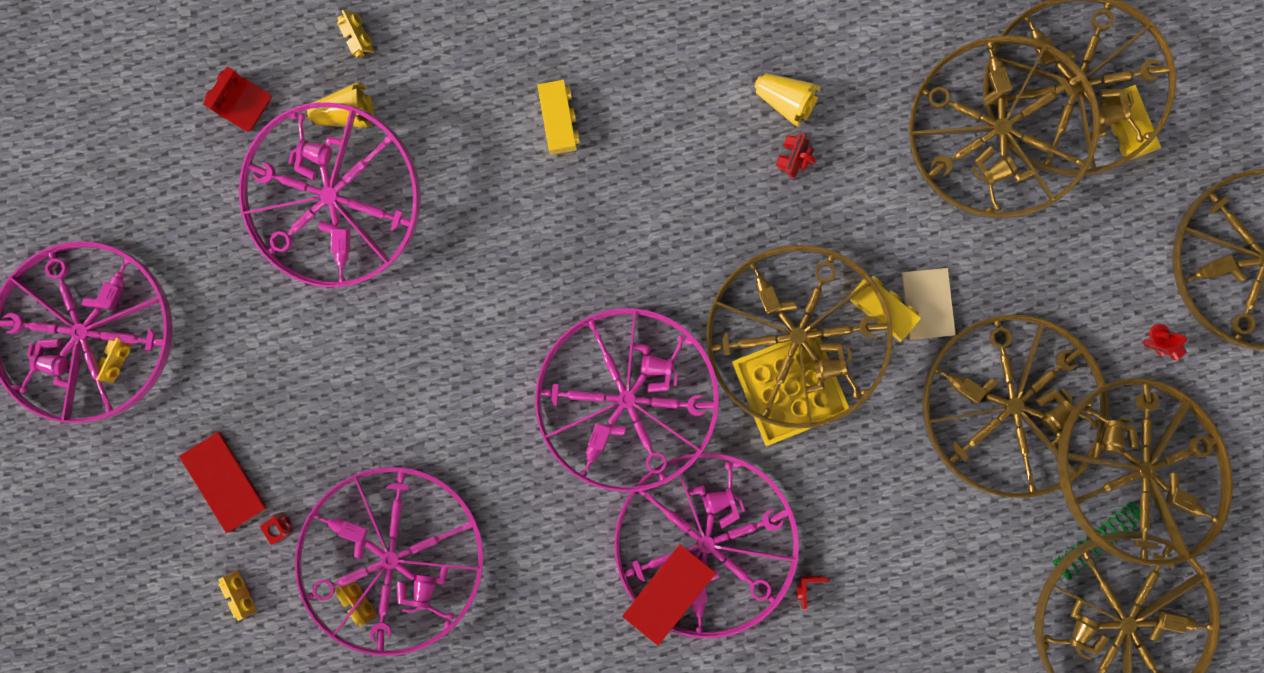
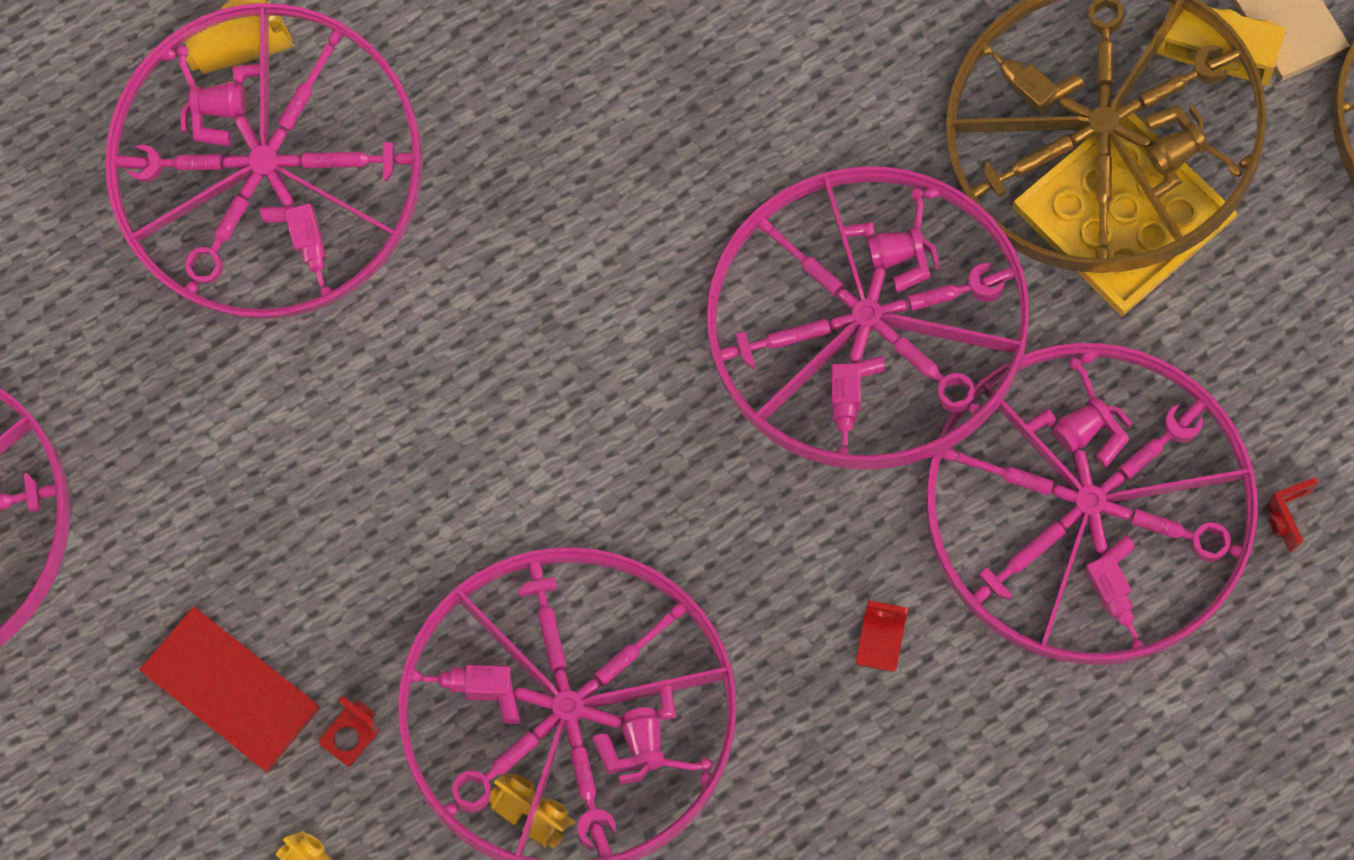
camera: 20 degrees left, 15 degrees down
(237, 99) = (59, 78): red bracket -> none
(567, 578) = (881, 636): none -> red bracket
(668, 594) = (1062, 597): red tile -> none

